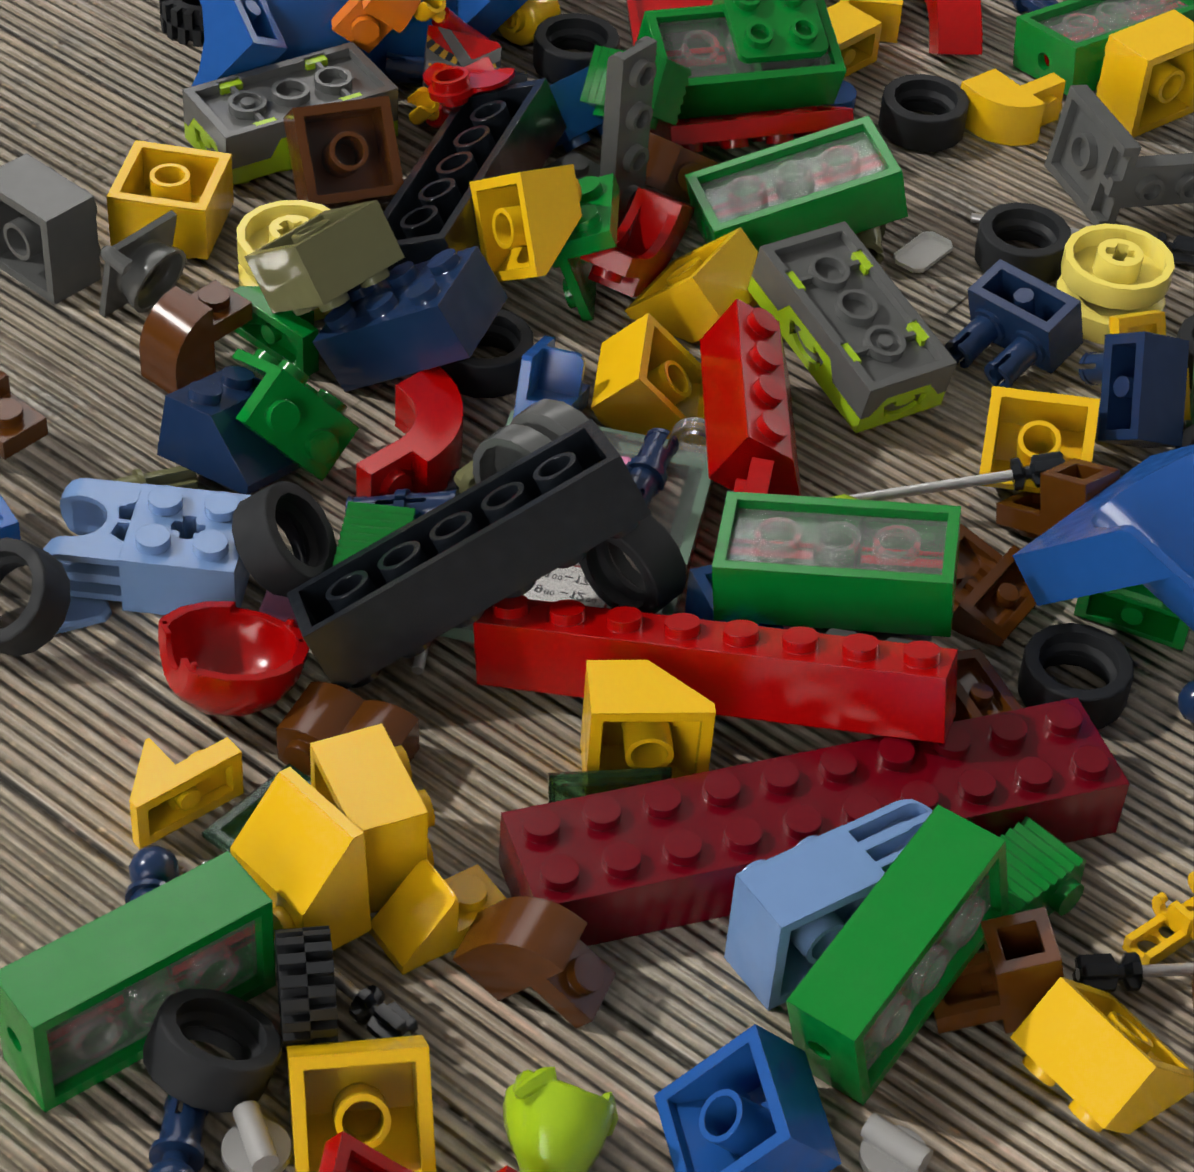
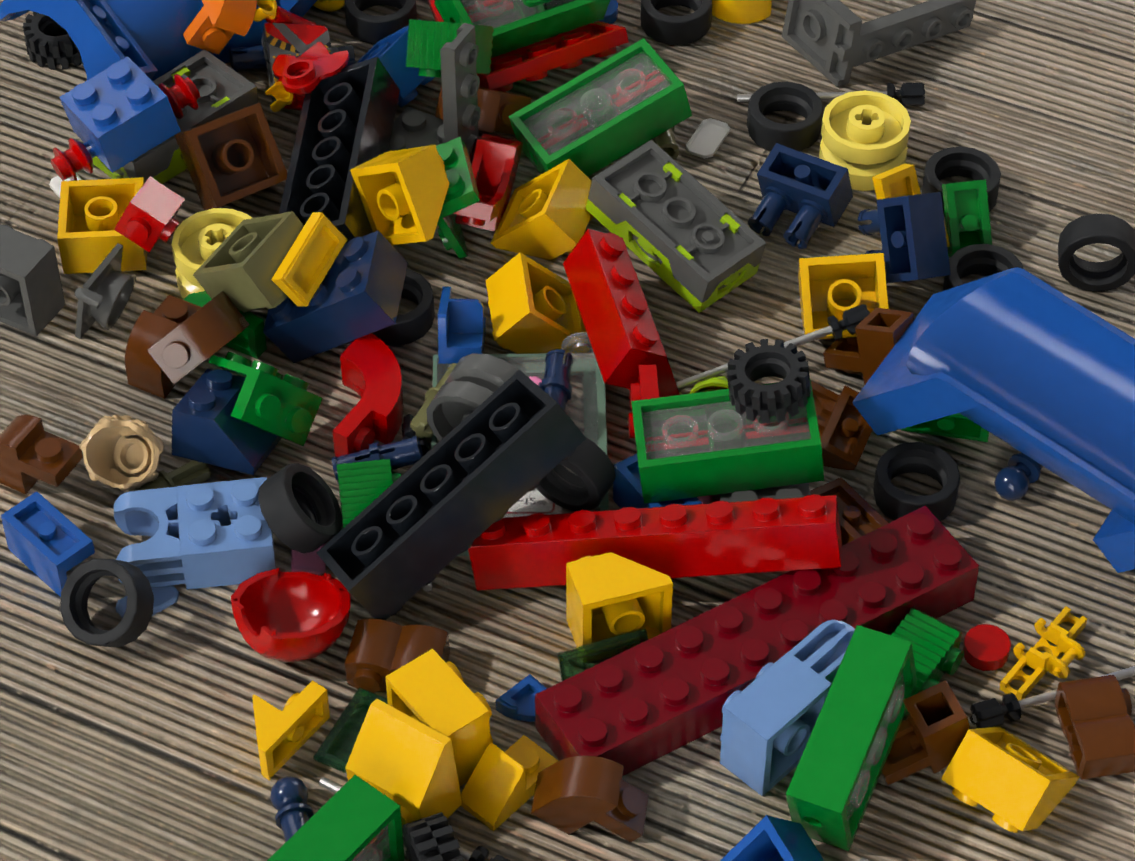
camera: 10 degrees left, 5 degrees up
(90, 433) = (122, 452): none -> tan hair
(219, 188) = (150, 215): none -> red brick
(224, 82) = (120, 117): none -> blue brick
(230, 320) = (198, 337): none -> reddish brown brick
(384, 261) = (309, 259): none -> yellow tile
(482, 824) = (520, 700): none -> blue tile
(880, 502) = (768, 362): none -> black tyre
(1117, 891) = (986, 647): none -> red tile

